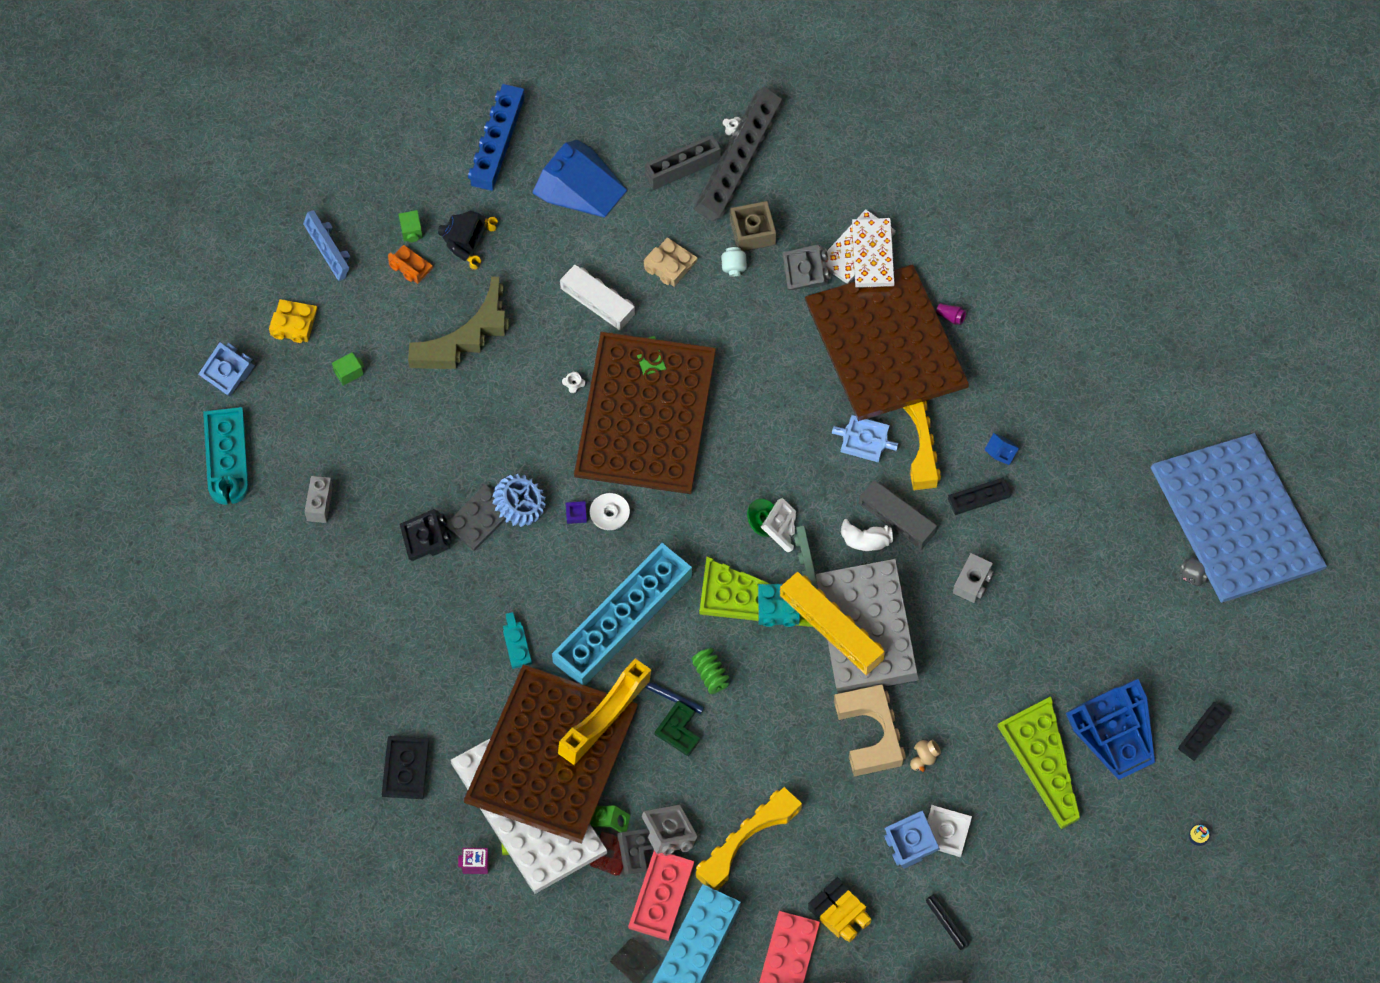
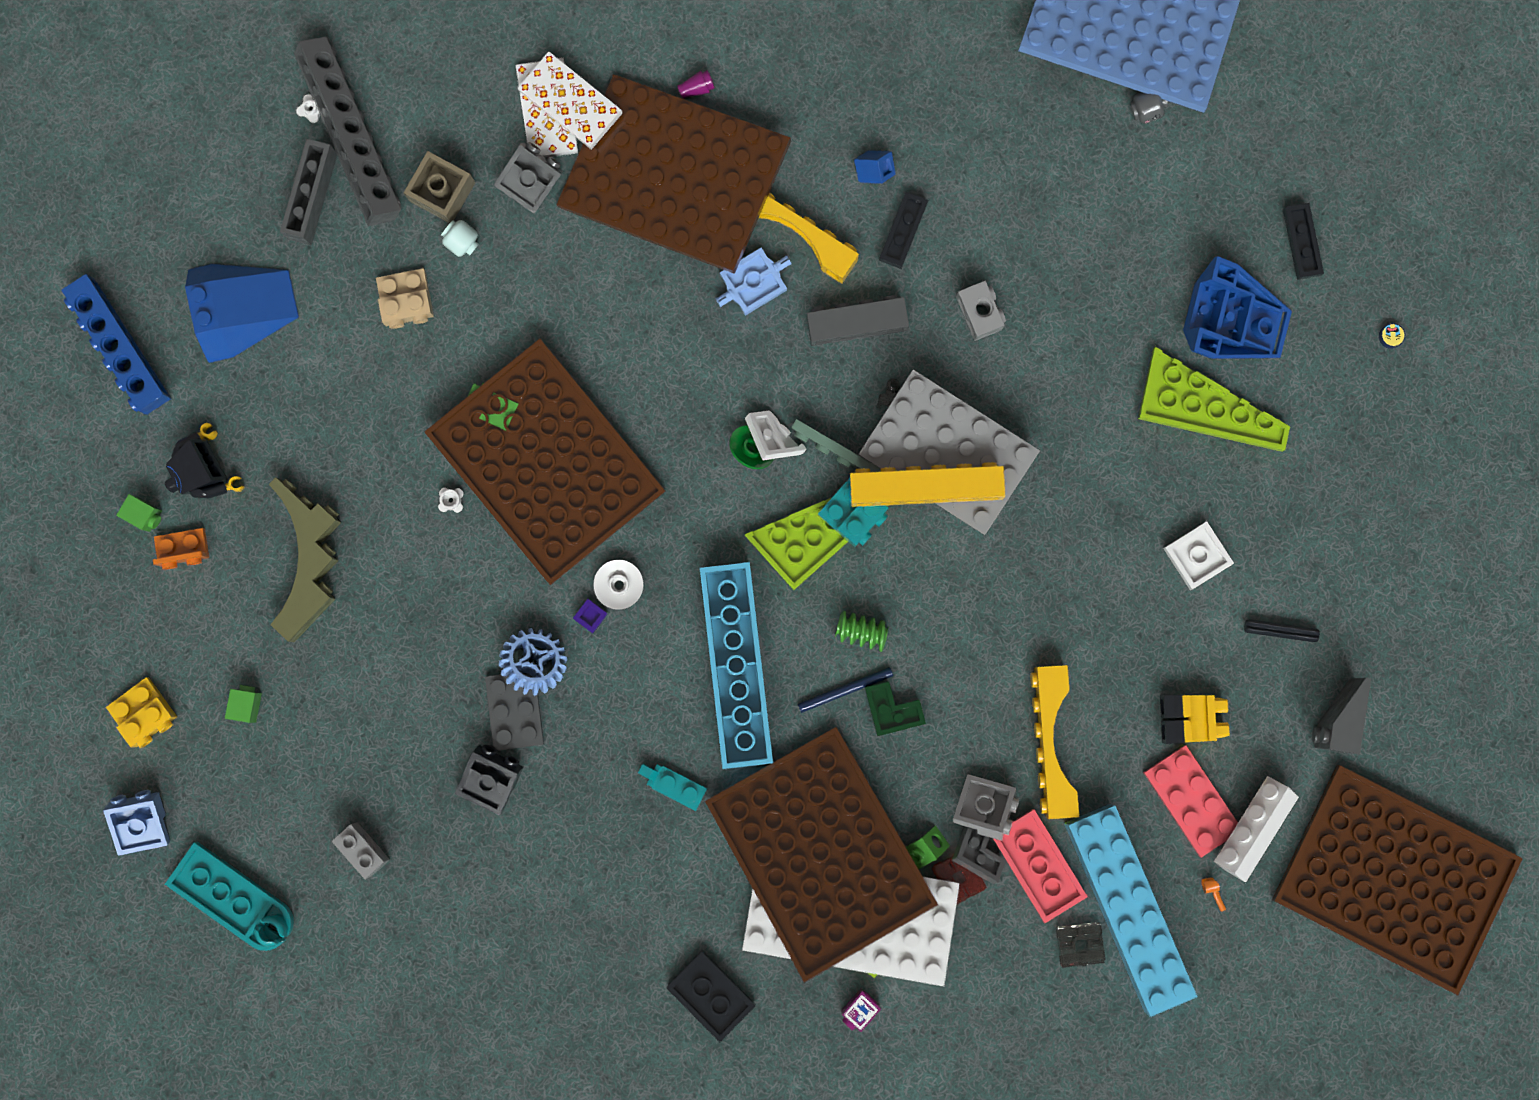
camera: 45 degrees left, 20 degrees up
(320, 234) = (66, 608): medium blue hinge -> none
(588, 731) = (826, 772): yellow arch -> none
(597, 297) = (380, 400): white brick -> none
(866, 540) = (859, 372): white animal -> none
(873, 703) = (1080, 540): tan arch -> none
(911, 839) = (1185, 596): medium blue plate -> none
(927, 754) = (1113, 507): tan animal -> none

